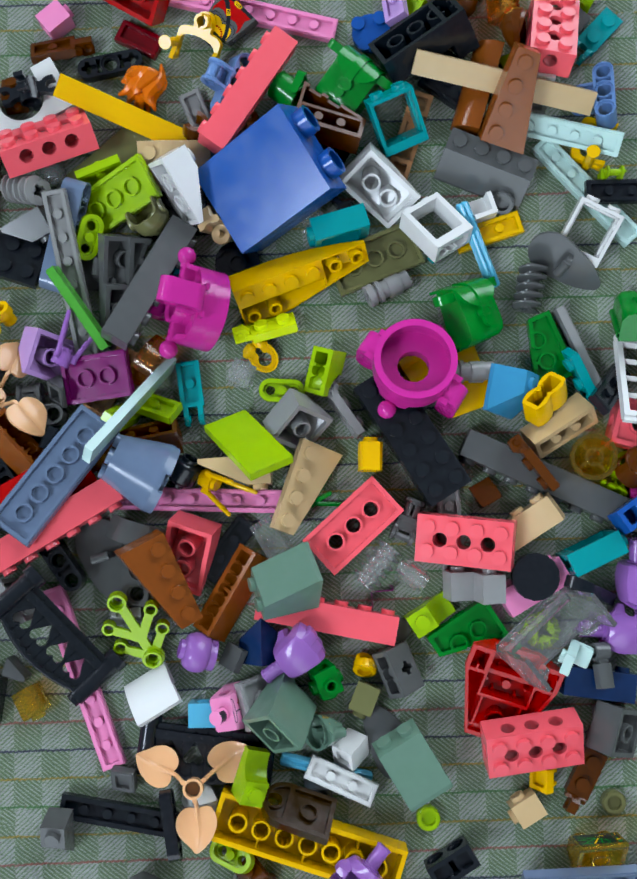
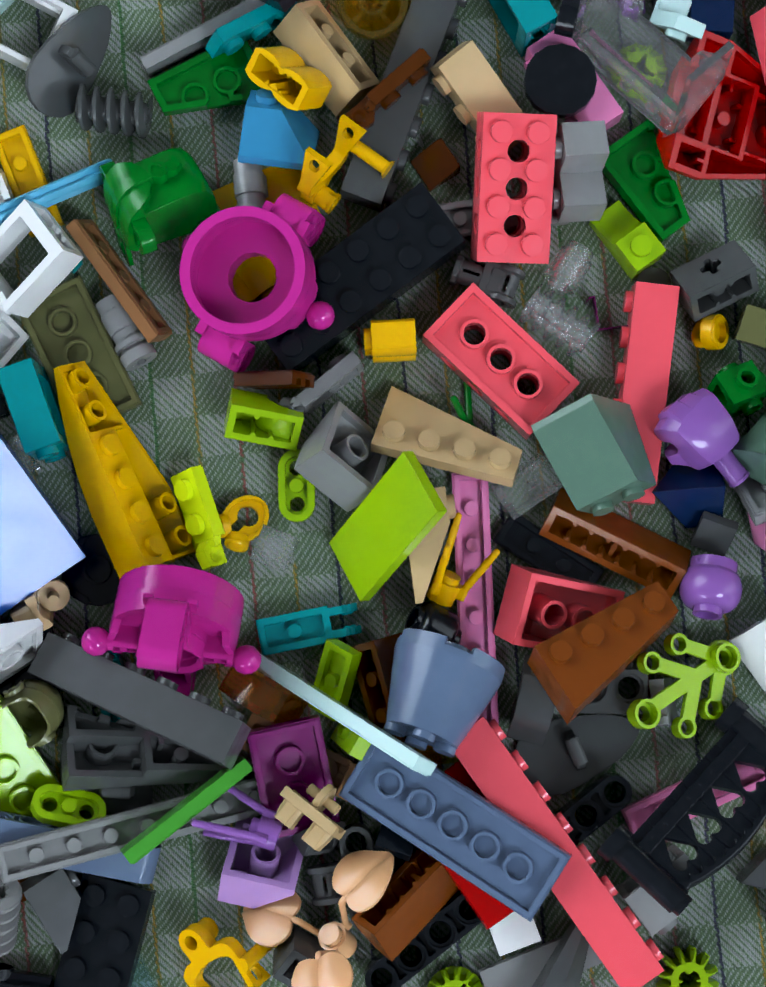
camera: 85 degrees left, 0 degrees up
(76, 378) = (296, 806): none -> tan hips
(349, 379) = (274, 379): none -> reddish brown tile
(420, 286) = (119, 280): none -> medium nougat tile
(474, 413) = (315, 180): none -> yellow piece

